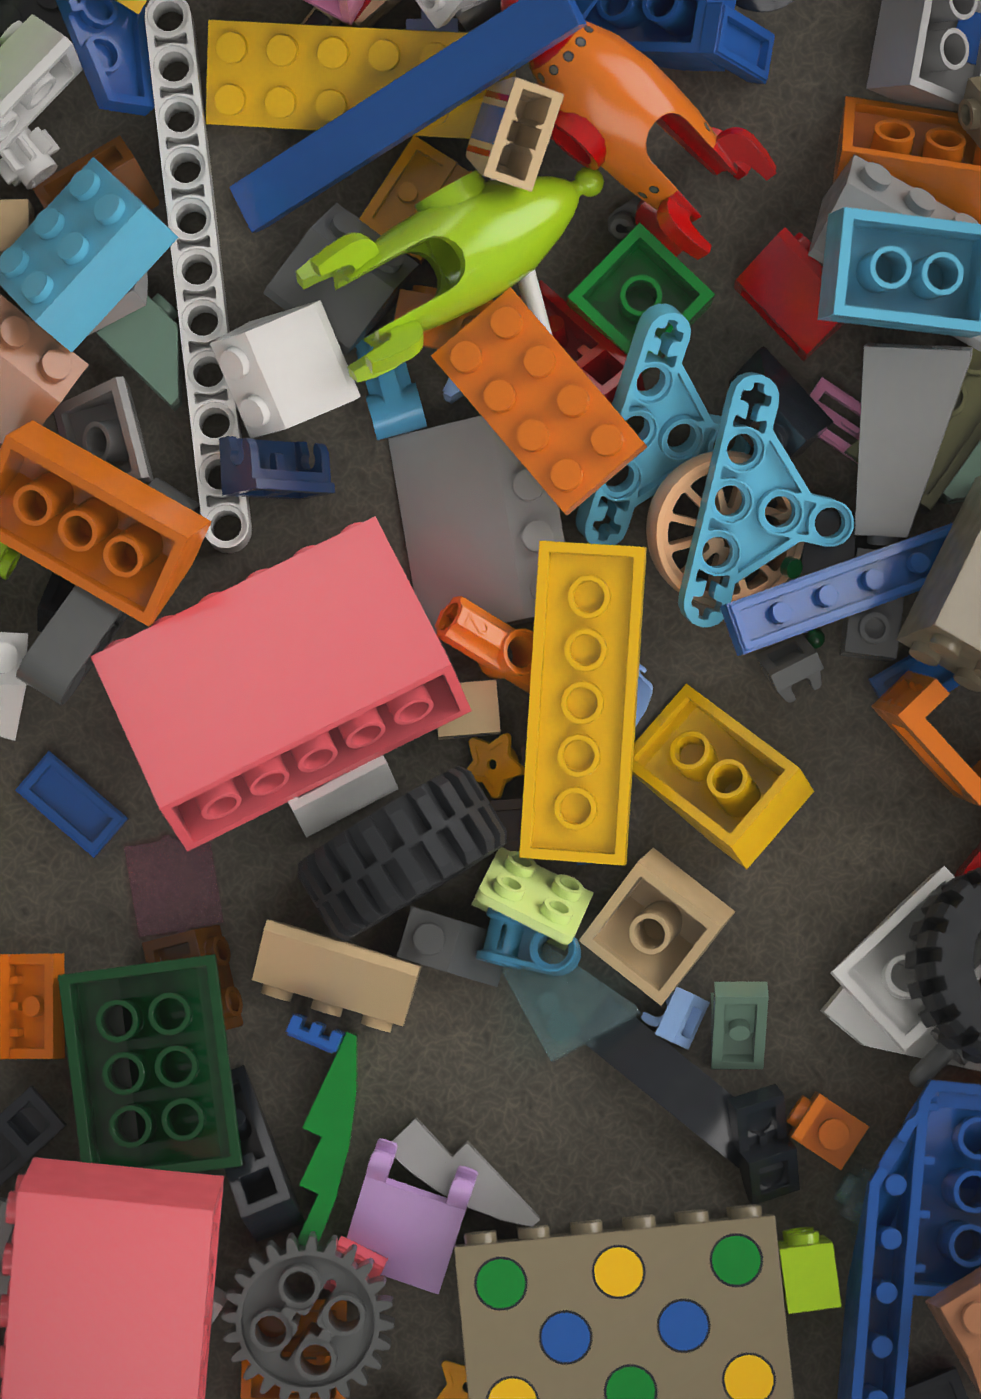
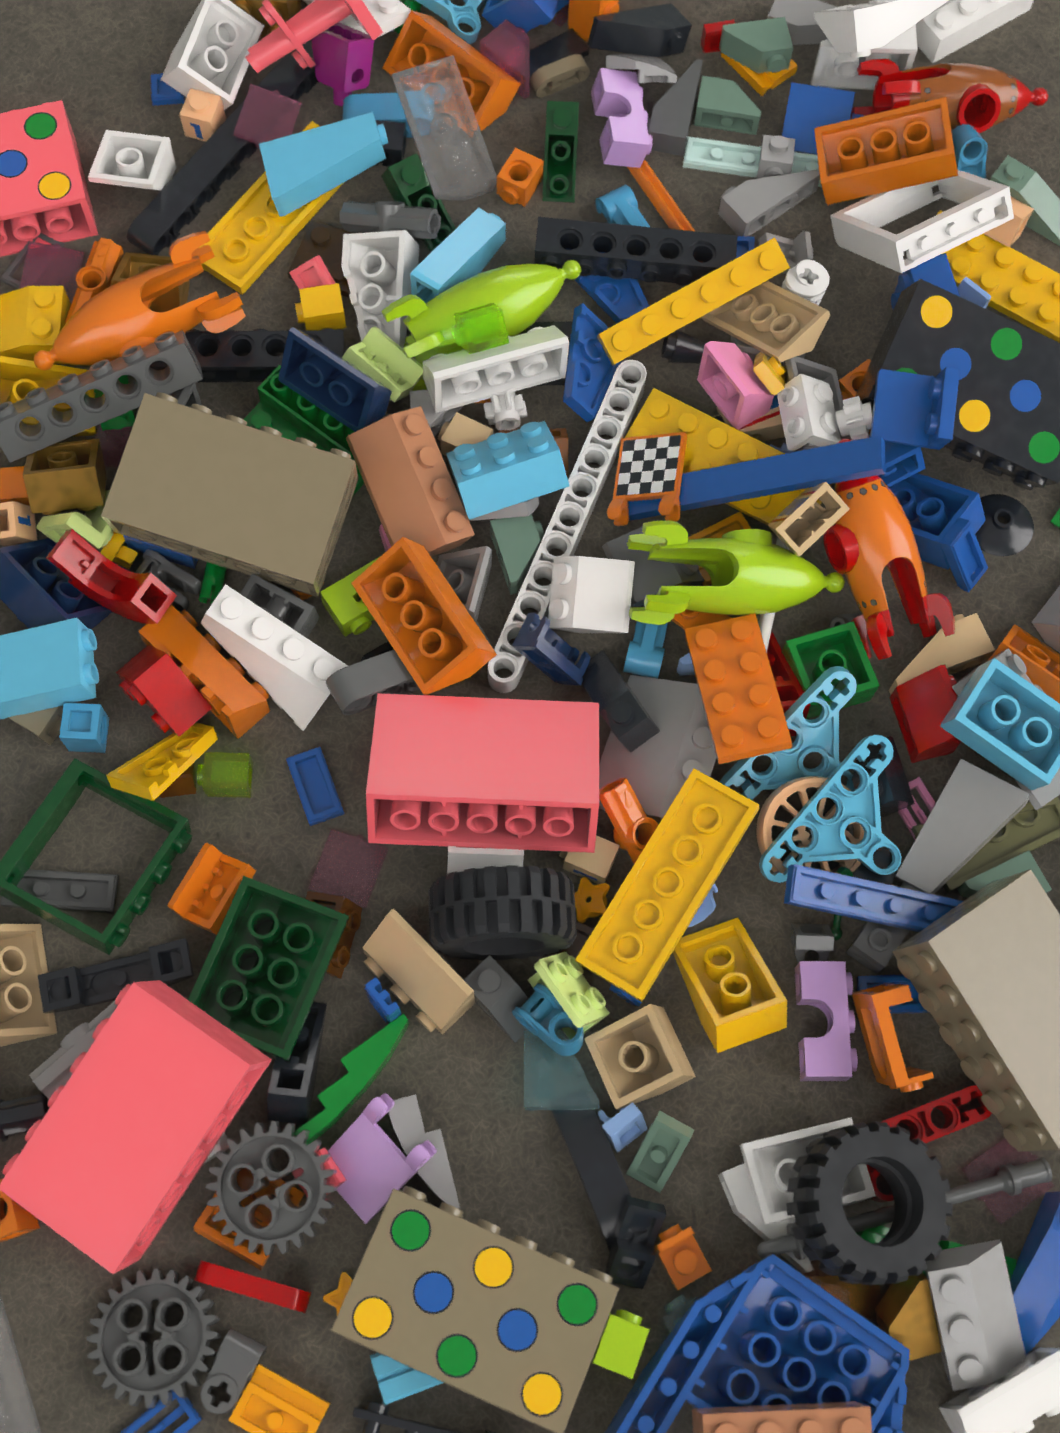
camera: 25 degrees right, 15 degrees down
(268, 150) = (649, 470): none -> flag
(393, 491) = (618, 703): none -> black slope
(772, 203) = (958, 651): none -> tan slope
(840, 716) = (827, 988): none -> lavender arch

